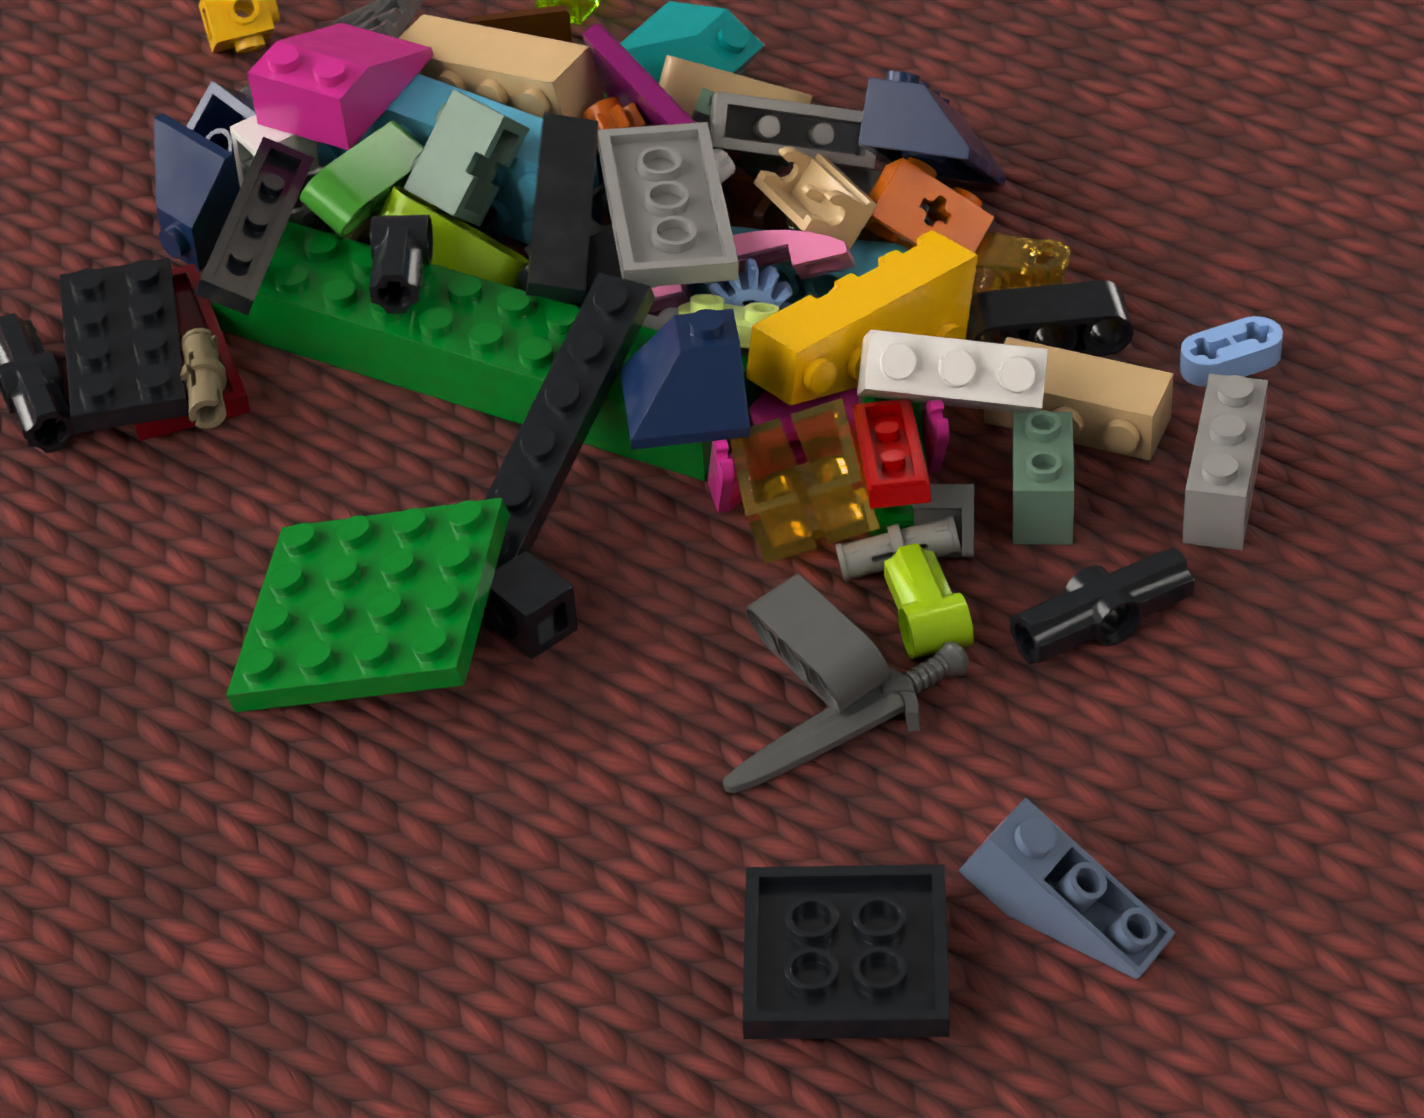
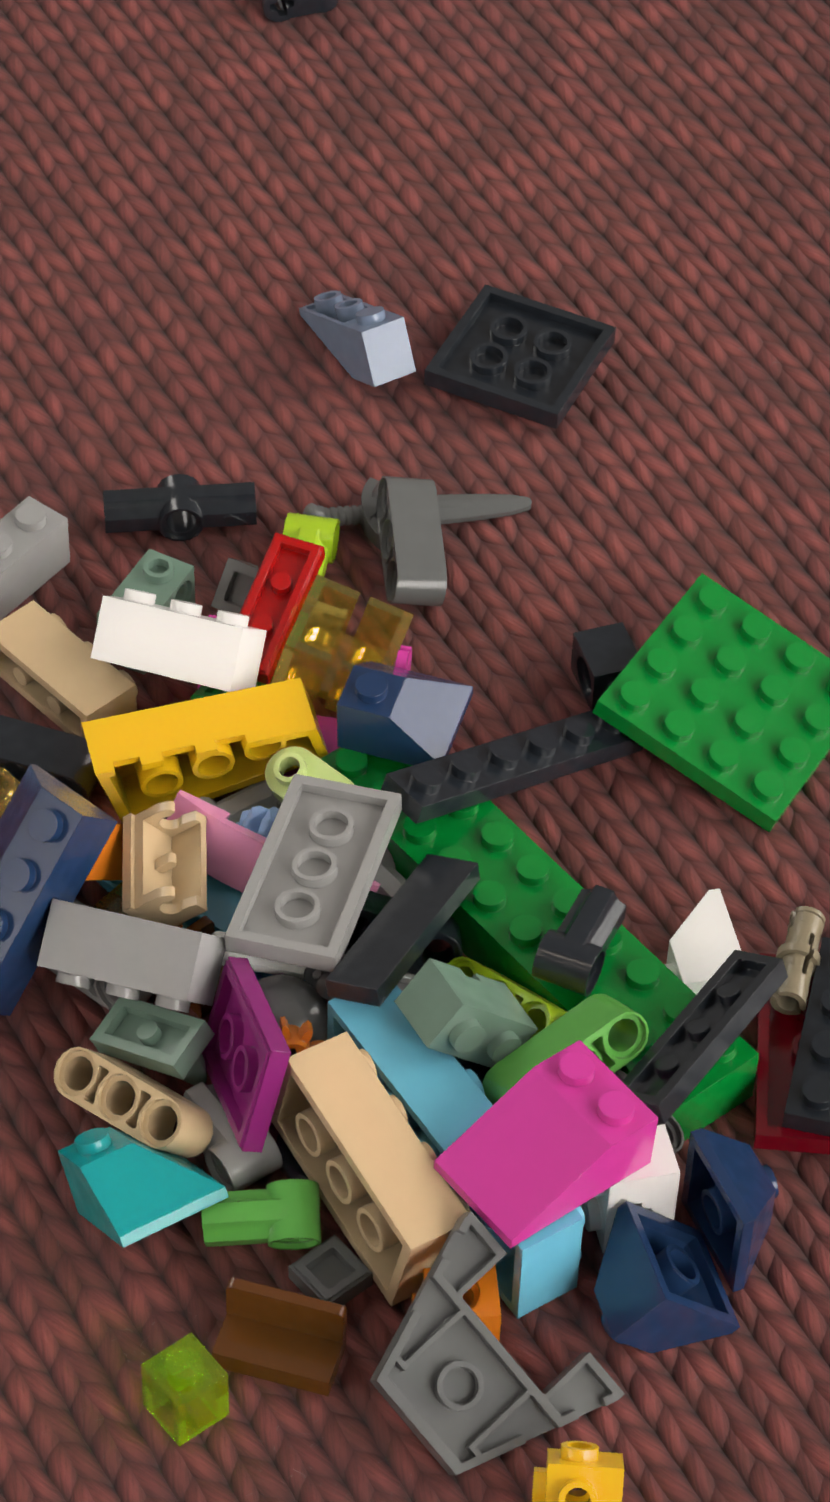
camera: 160 degrees left, 5 degrees up
(296, 378) = (702, 942): none -> white slope

